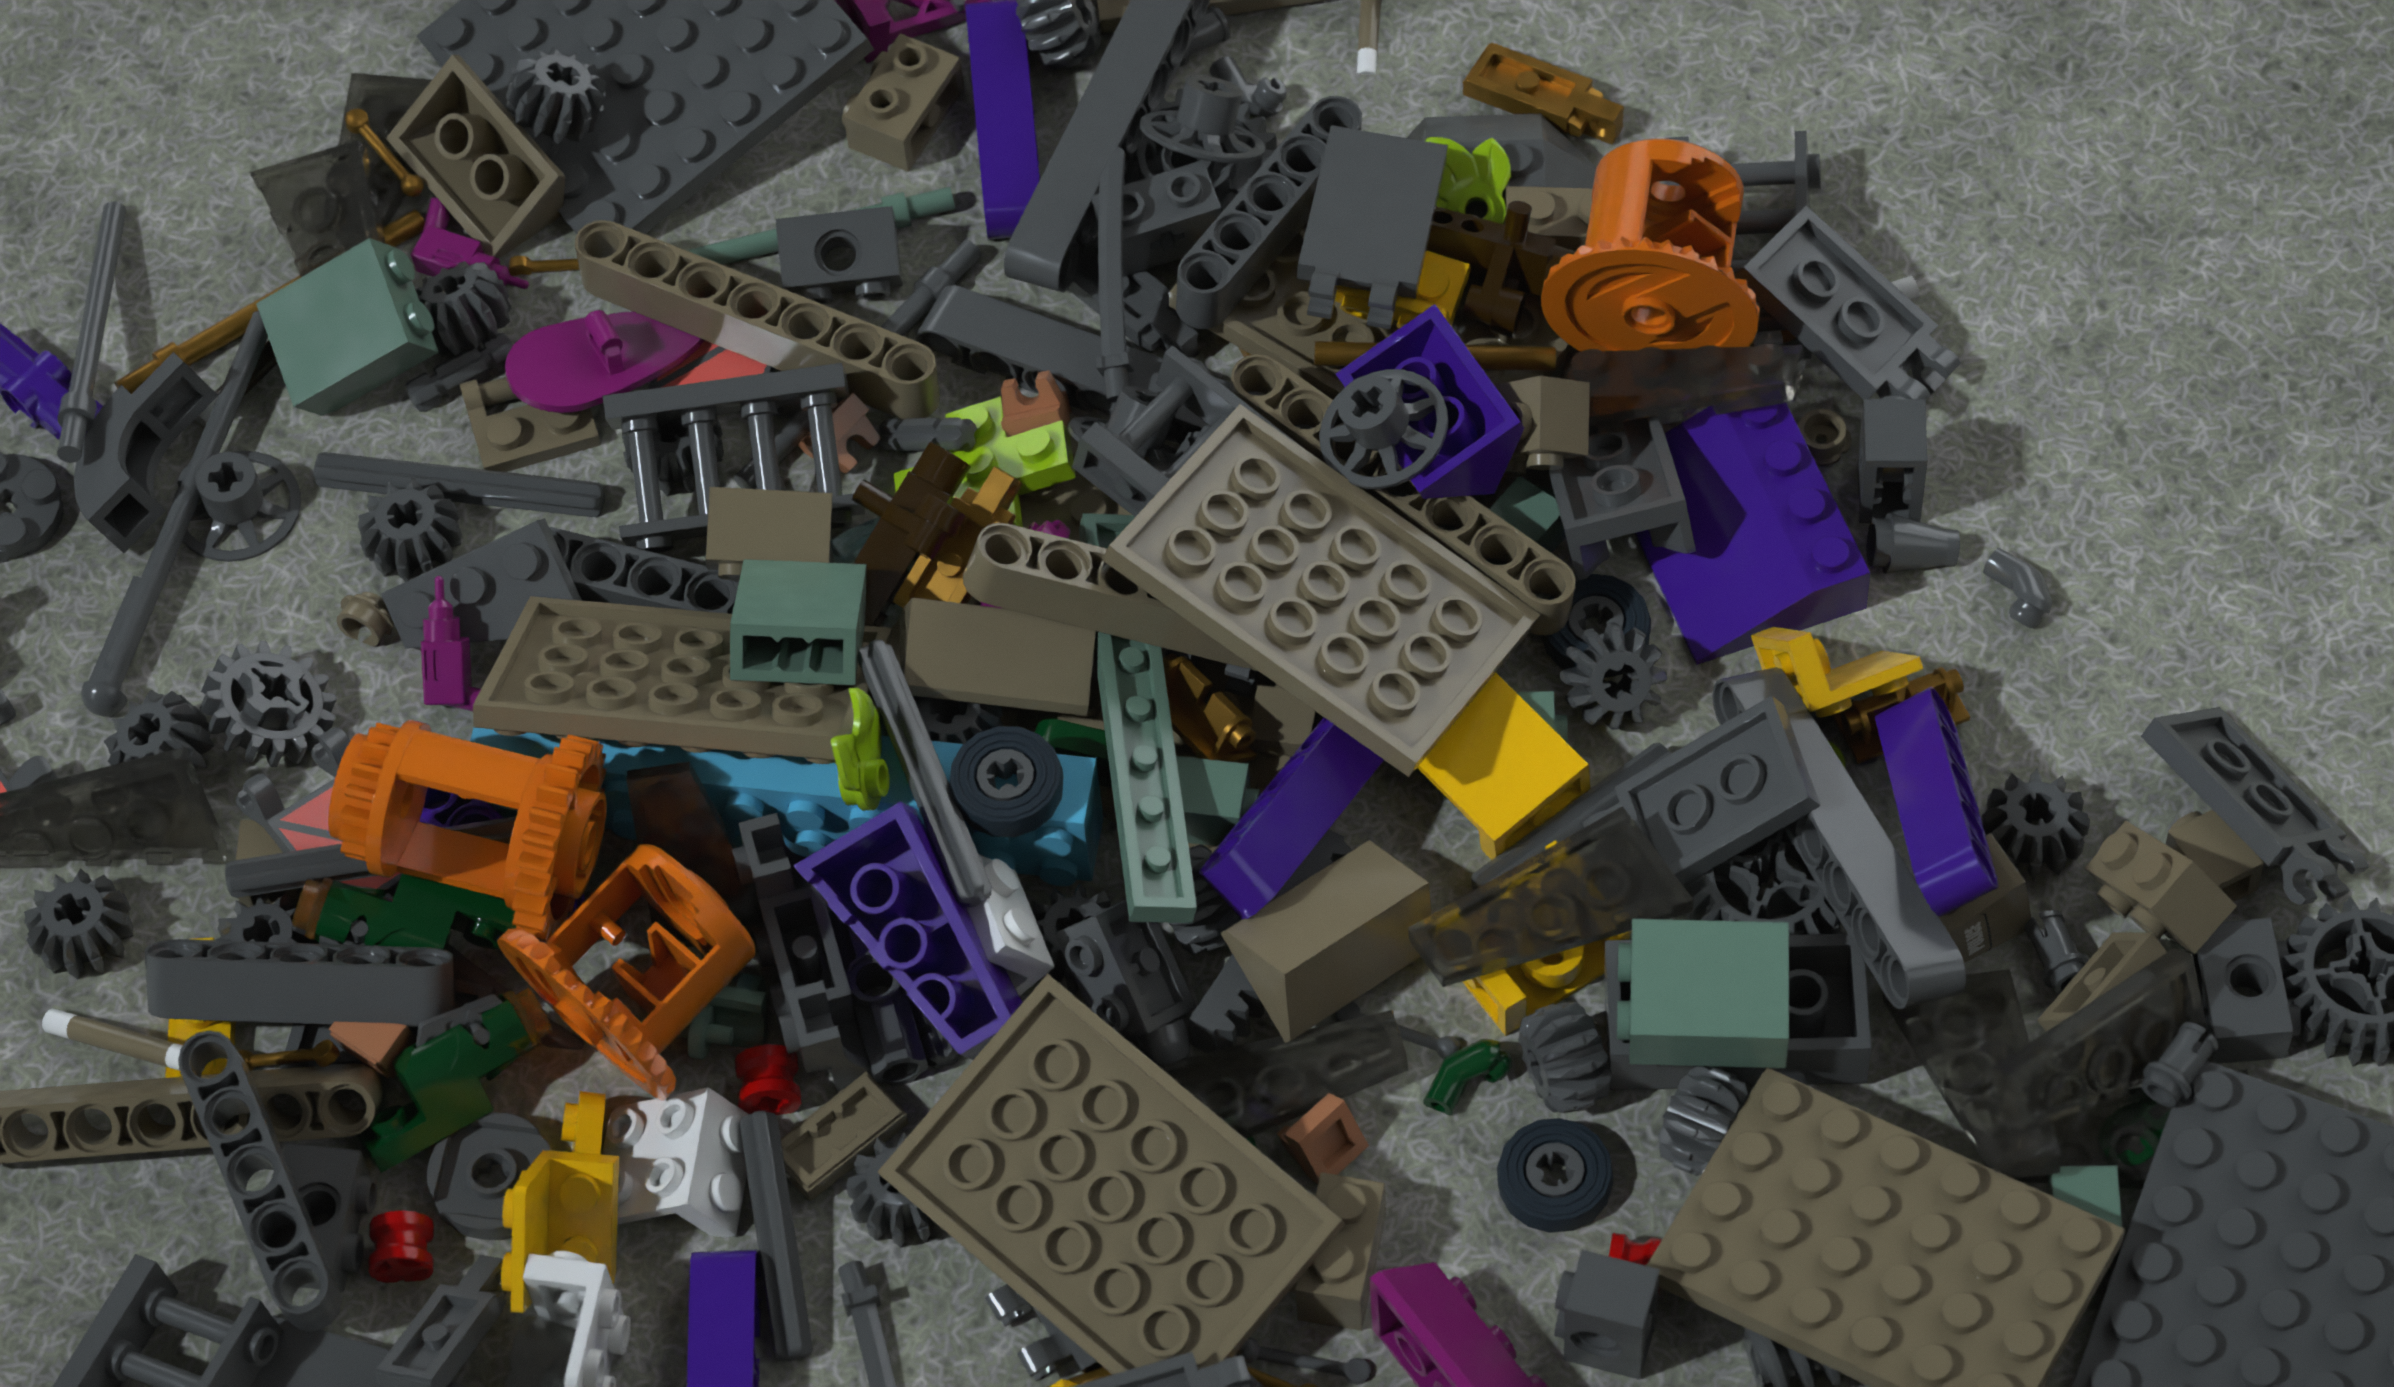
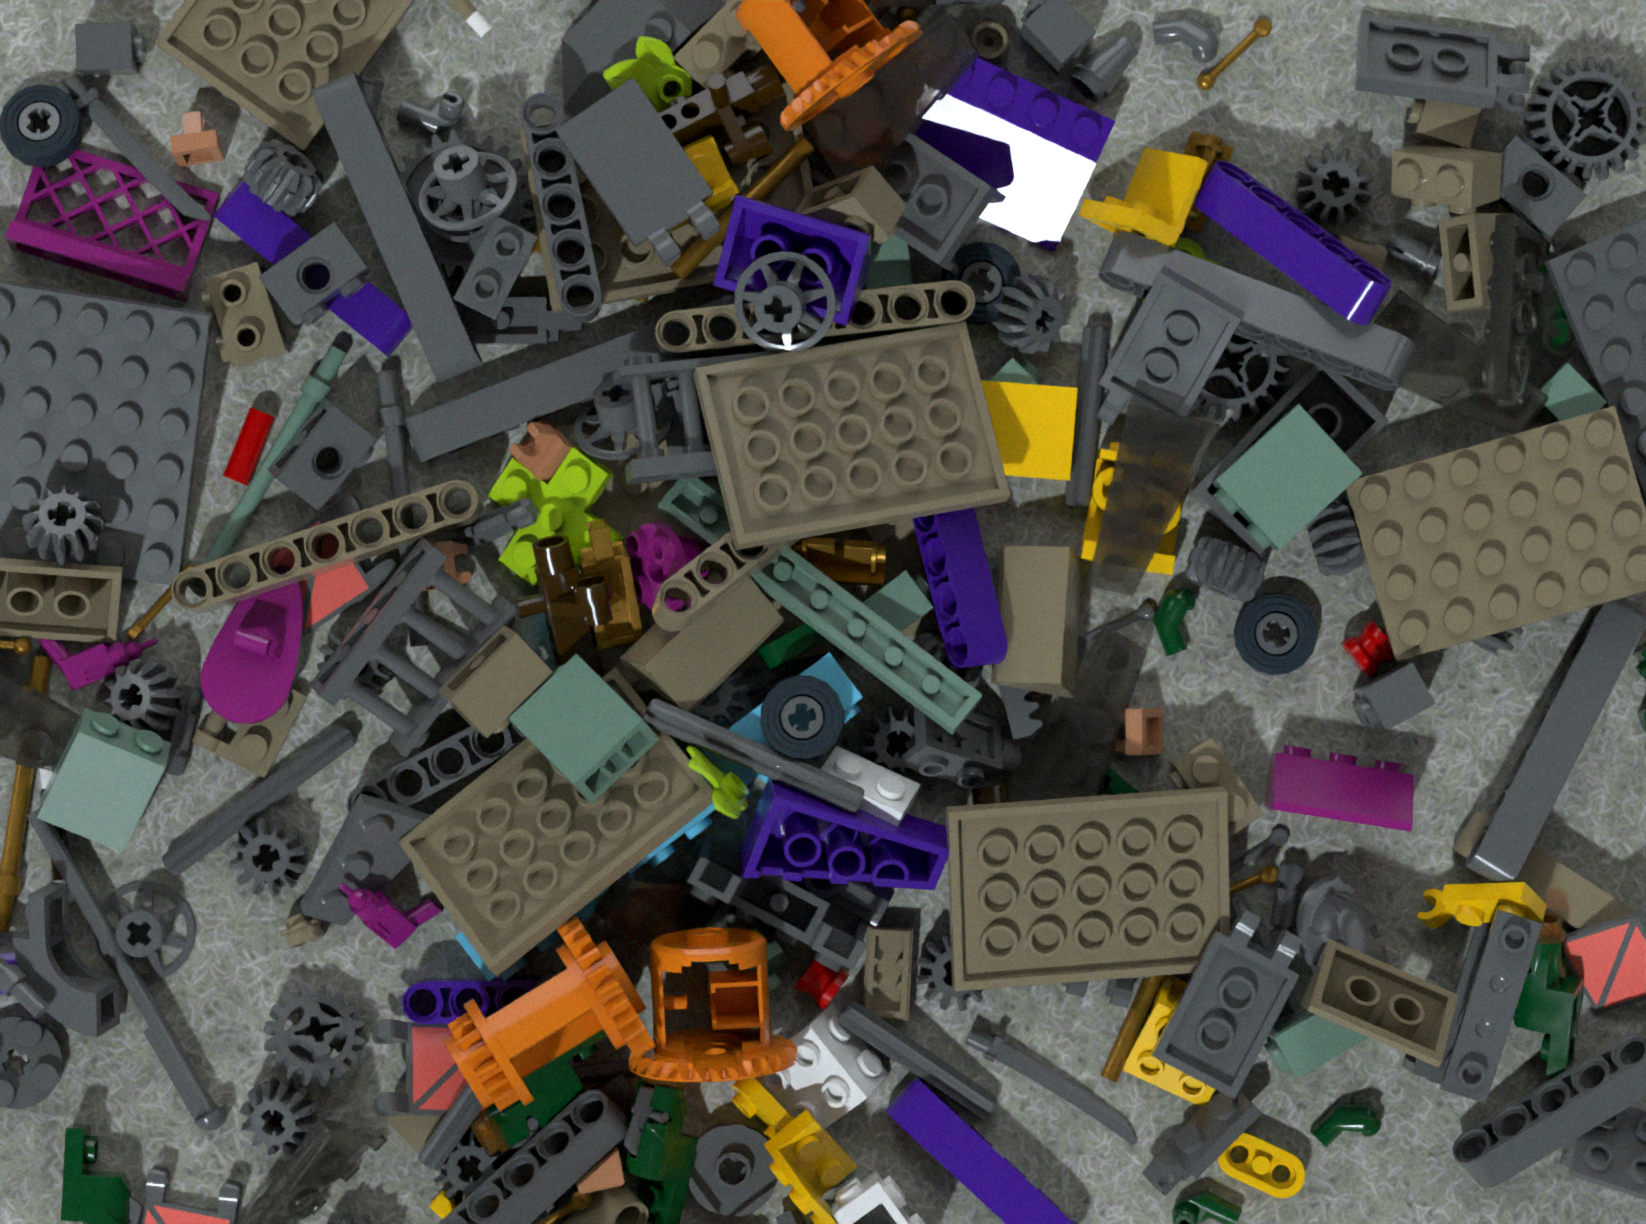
camera: 50 degrees left, 30 degrees up
(798, 200) = (248, 446): none -> red axle
(996, 94) = (288, 281): none -> dark grey brick
(1115, 359) = (567, 384): dark grey sword -> none
(2104, 644) = (1260, 29): none -> pearl gold hinge
(2171, 1076) = (1551, 276): dark grey pin -> none

